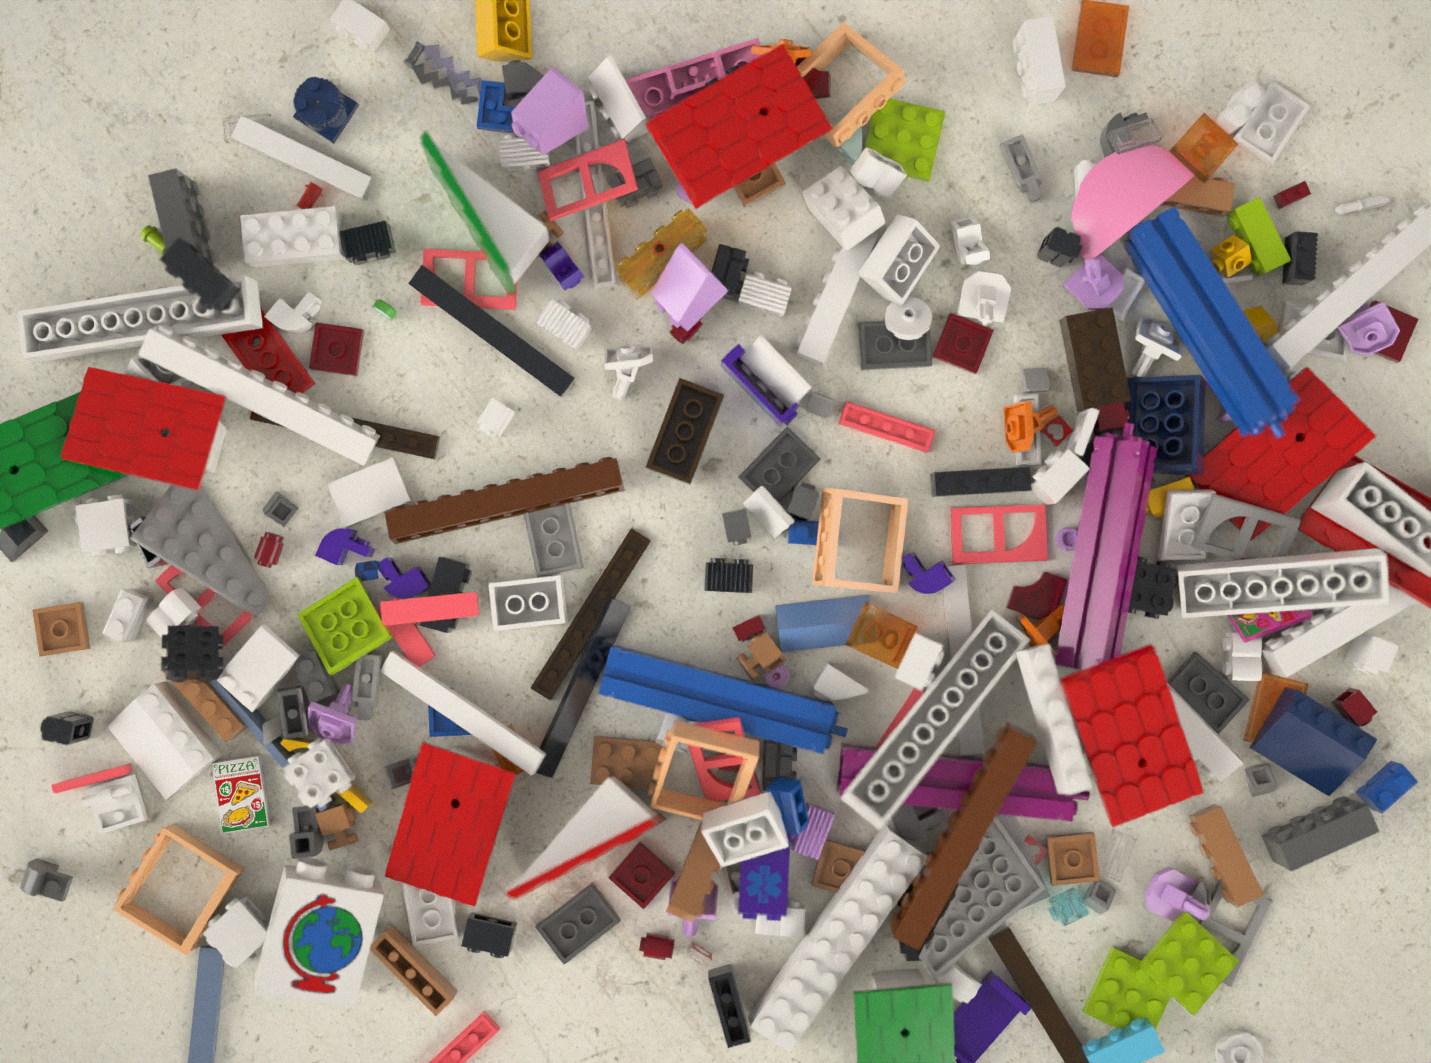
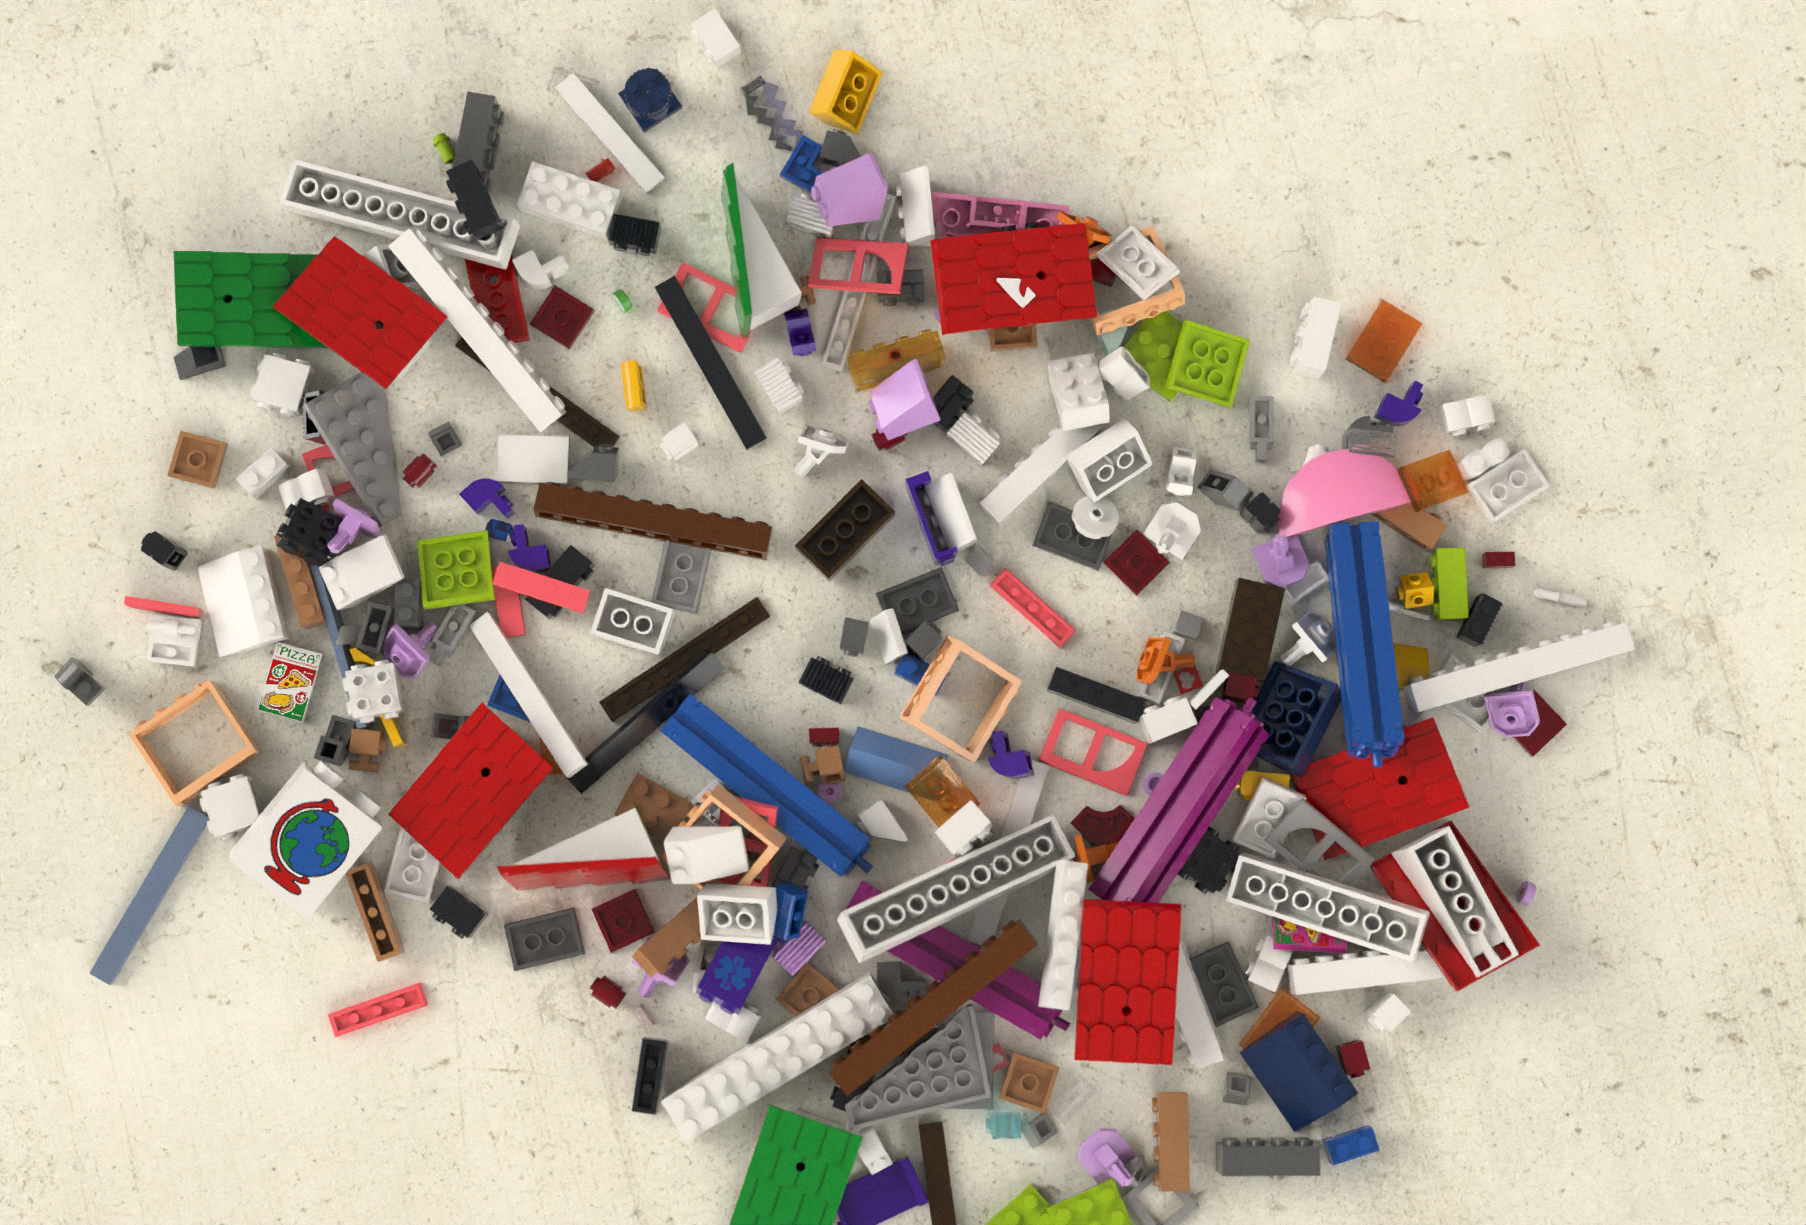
camera: 20 degrees right, 5 degrees down
(228, 631) = (353, 524): none -> lavender piece
(430, 383) = (633, 385): none -> yellow brick
(430, 471) = (597, 464): none -> dark grey slope
(690, 789) = (705, 853): none -> white slope
(741, 135) = (1011, 286): none -> white sticker
(846, 61) = (1138, 262): none -> white tile
(949, 129) = (1207, 364): none -> lime plate
(1018, 240) = (1225, 490): none -> dark grey brick
(1145, 95) = (1398, 411): none -> dark purple brick
(1207, 72) = (1467, 415): none -> white brick

